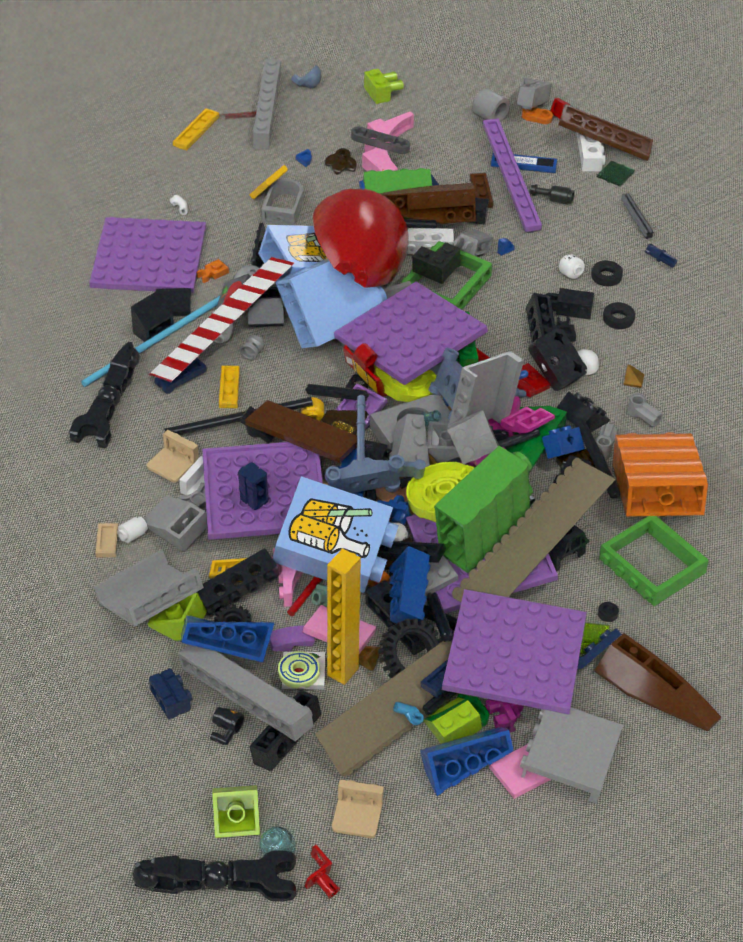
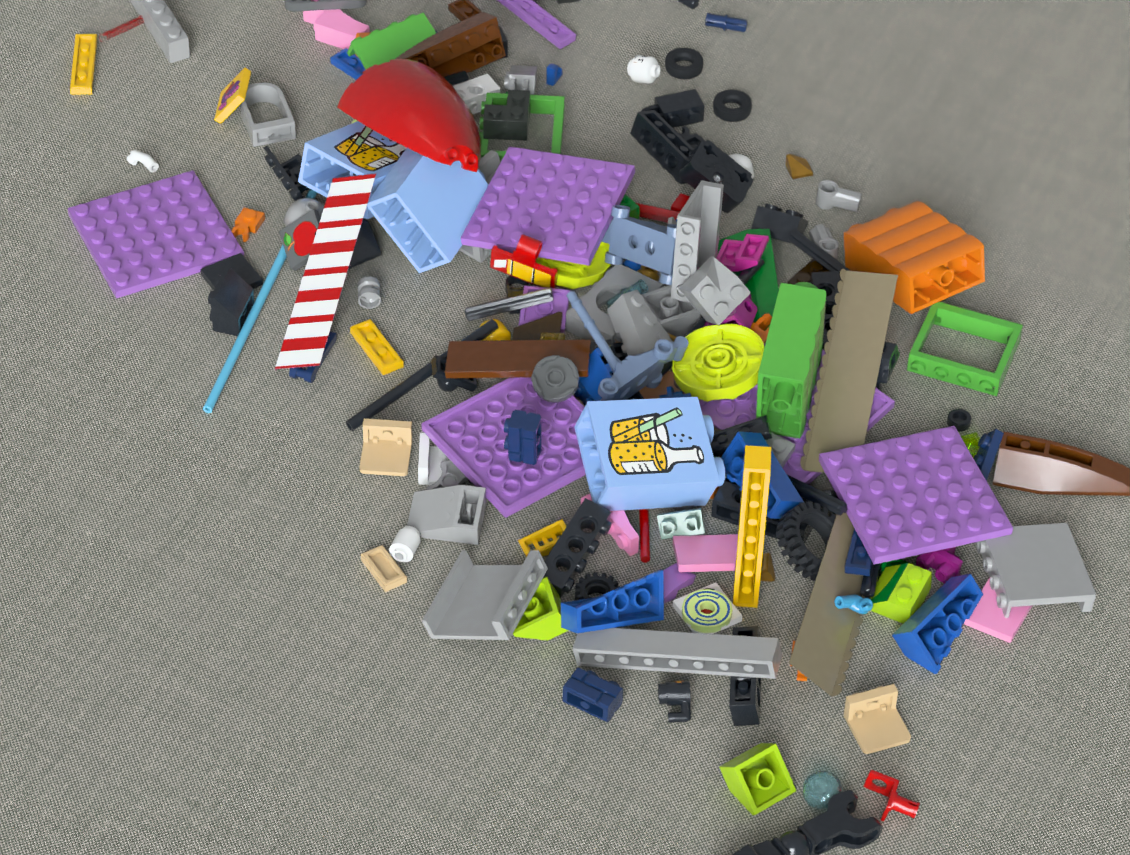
camera: 30 degrees left, 0 degrees up
(98, 417) = (255, 410): black piece -> none
(304, 157) = (241, 52): blue tile -> none
(313, 454) = (555, 378): none -> dark grey tile
(341, 160) = (291, 42): dark brown plate -> none
(563, 442) = (790, 262): blue brick -> none

